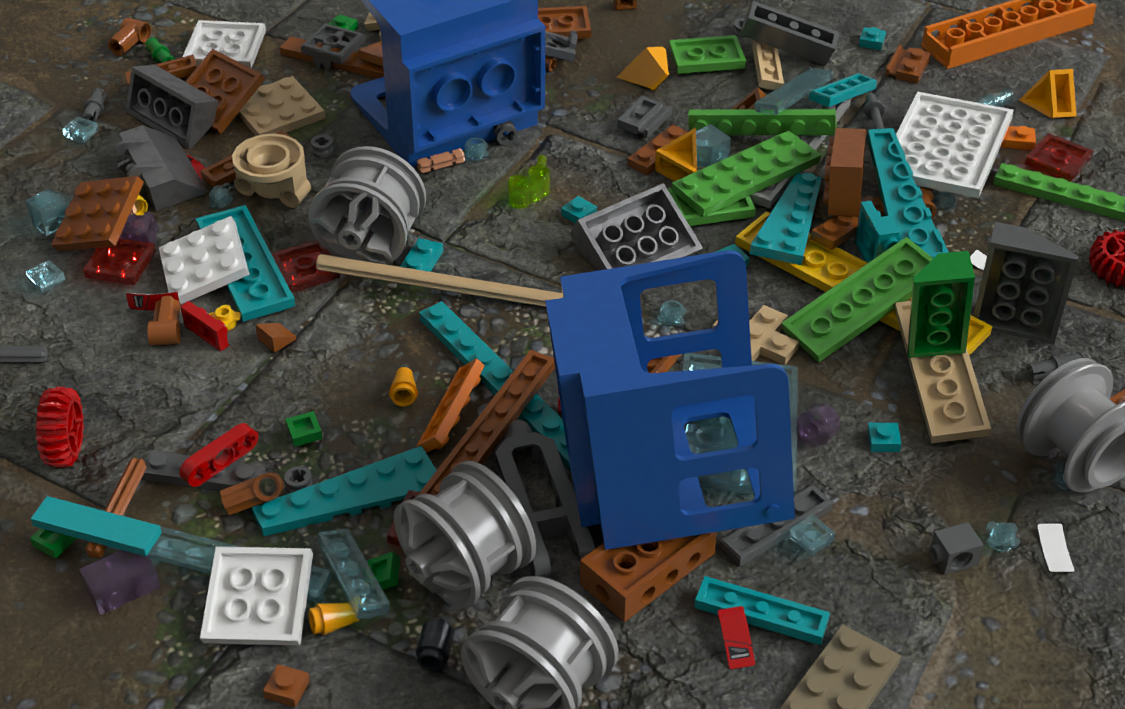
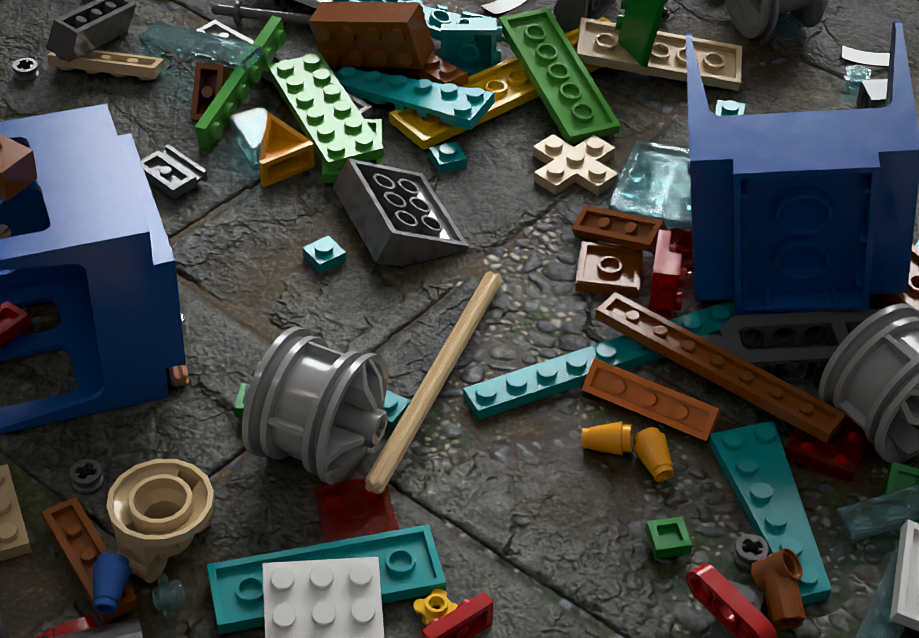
camera: 80 degrees left, 0 degrees up
(216, 162) = (109, 581): none -> blue cone
(274, 335) = (485, 558): dark orange slope -> none
(391, 414) = (654, 453): none -> light orange cone
(527, 190) = (267, 279): clear neon green beam -> none
(644, 158) = (233, 174): dark orange plate -> none
(672, 313) = (528, 211): clear light blue plate -> none
(707, 54) = (71, 92): bright green plate -> none
(842, 90) = (203, 19): teal tile -> none

